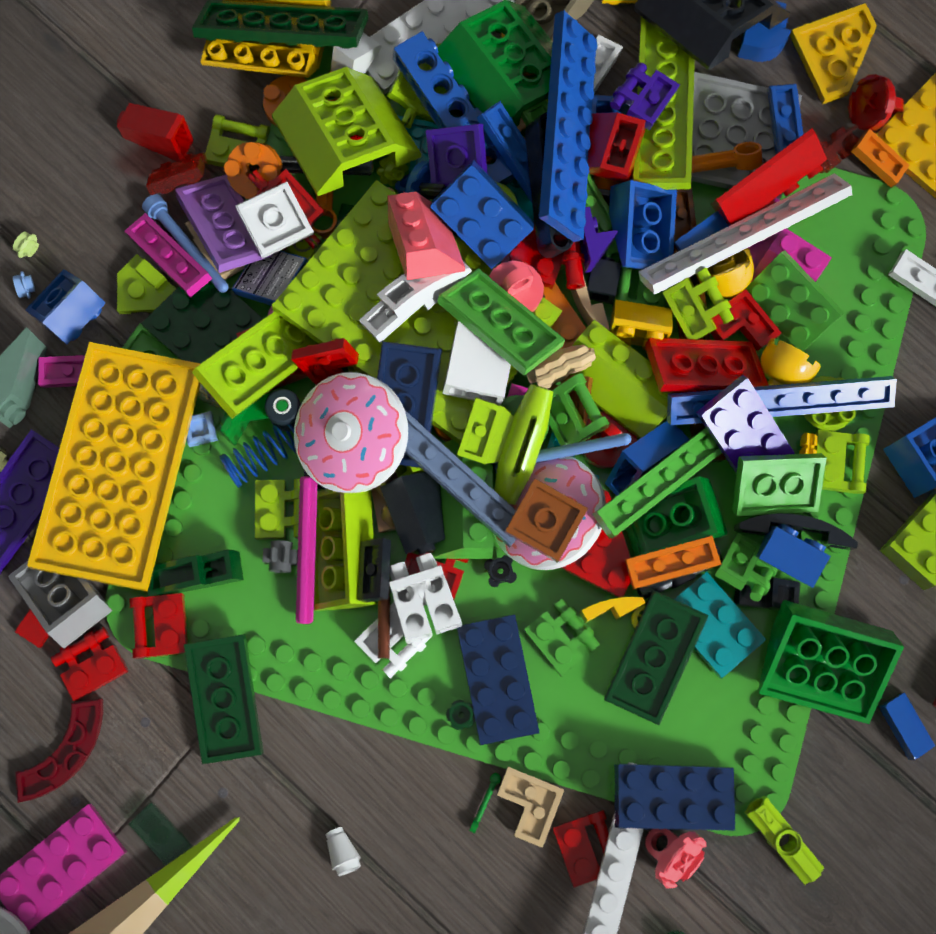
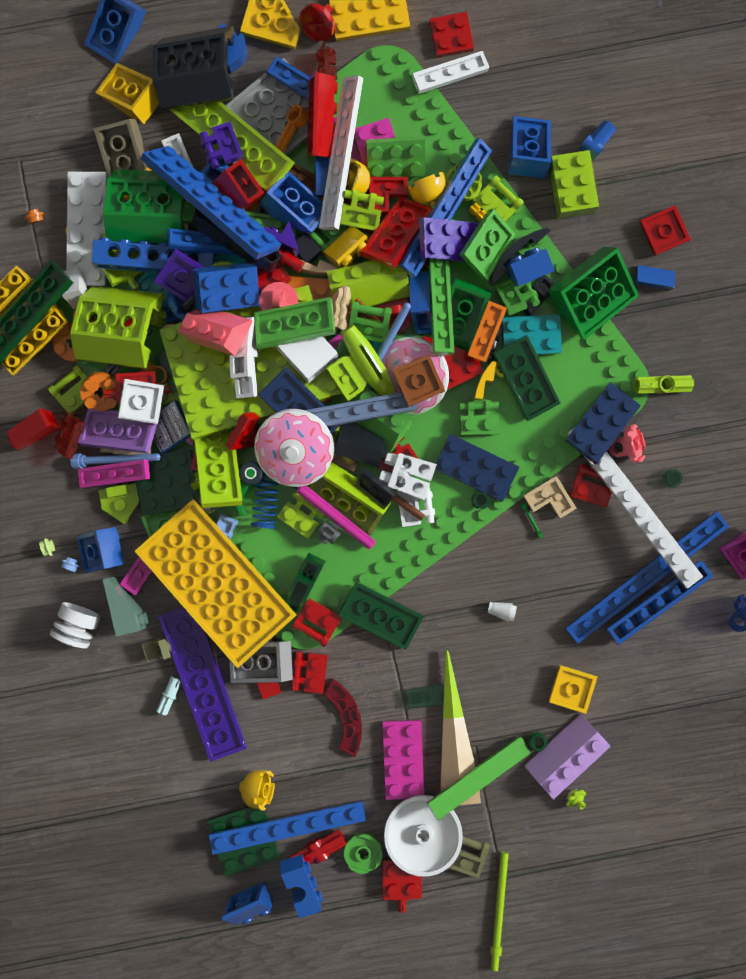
camera: 50 degrees left, 10 degrees up
(503, 563) = (427, 421): black plate -> none
(880, 158) = (350, 44): orange plate -> none

